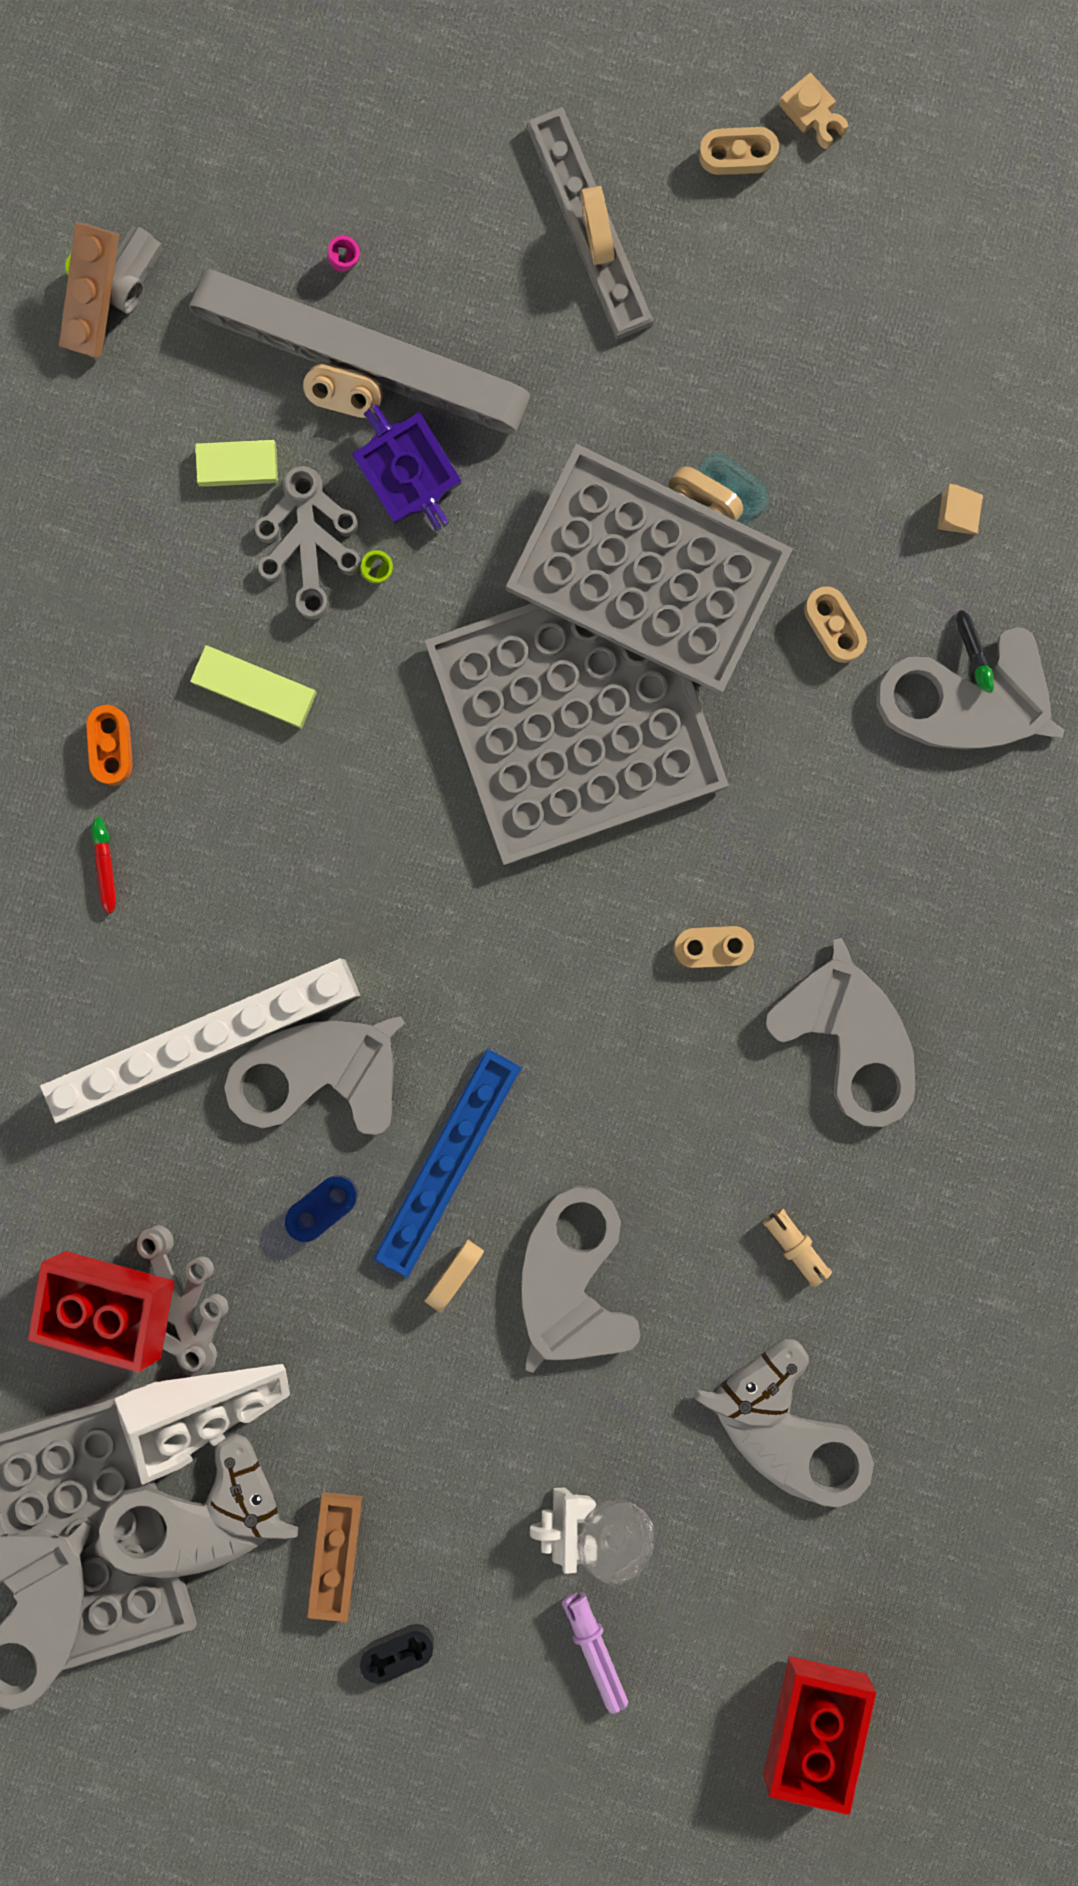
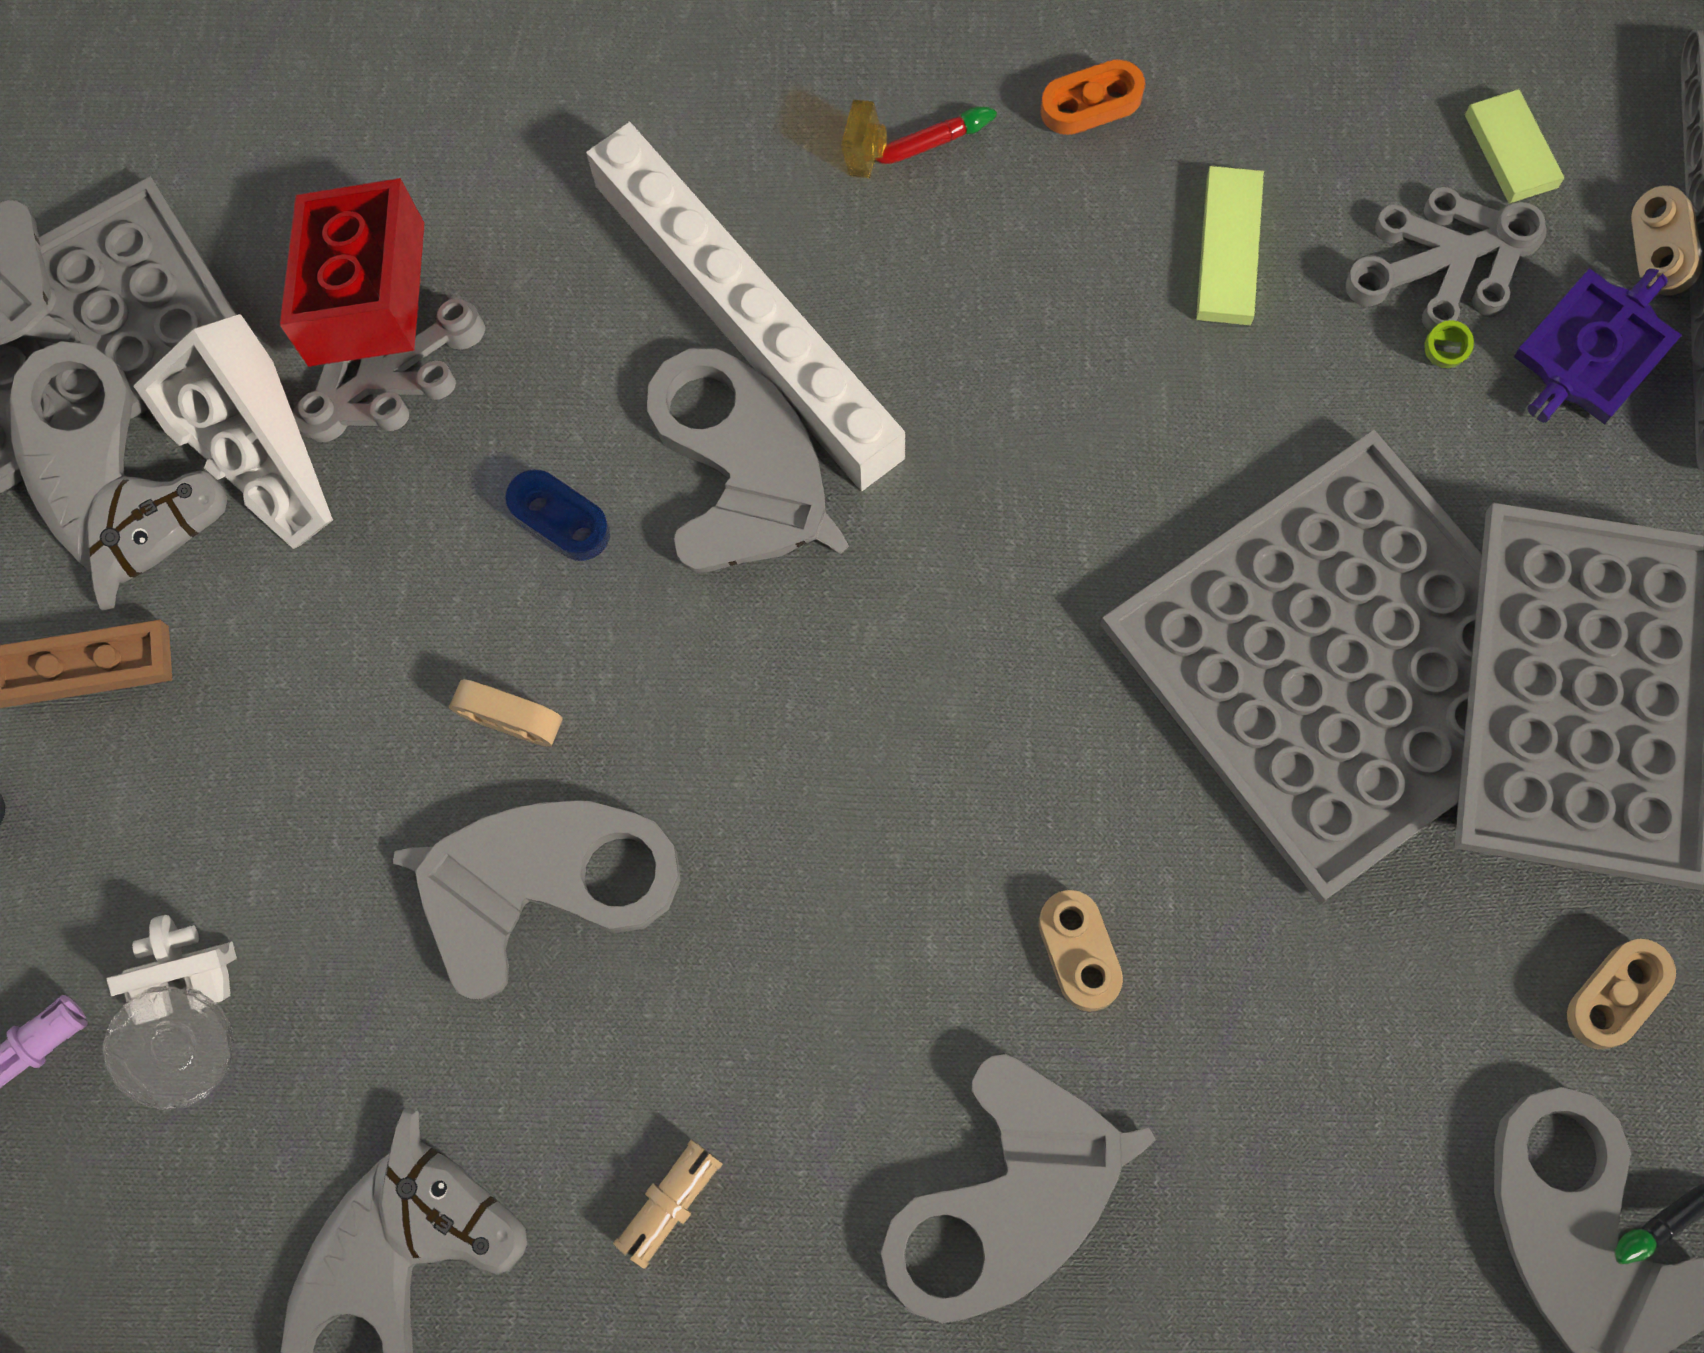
camera: 85 degrees right, 15 degrees down
(95, 919) = (863, 139): none -> clear yellow plate
(447, 1163) = (664, 665): blue tile -> none

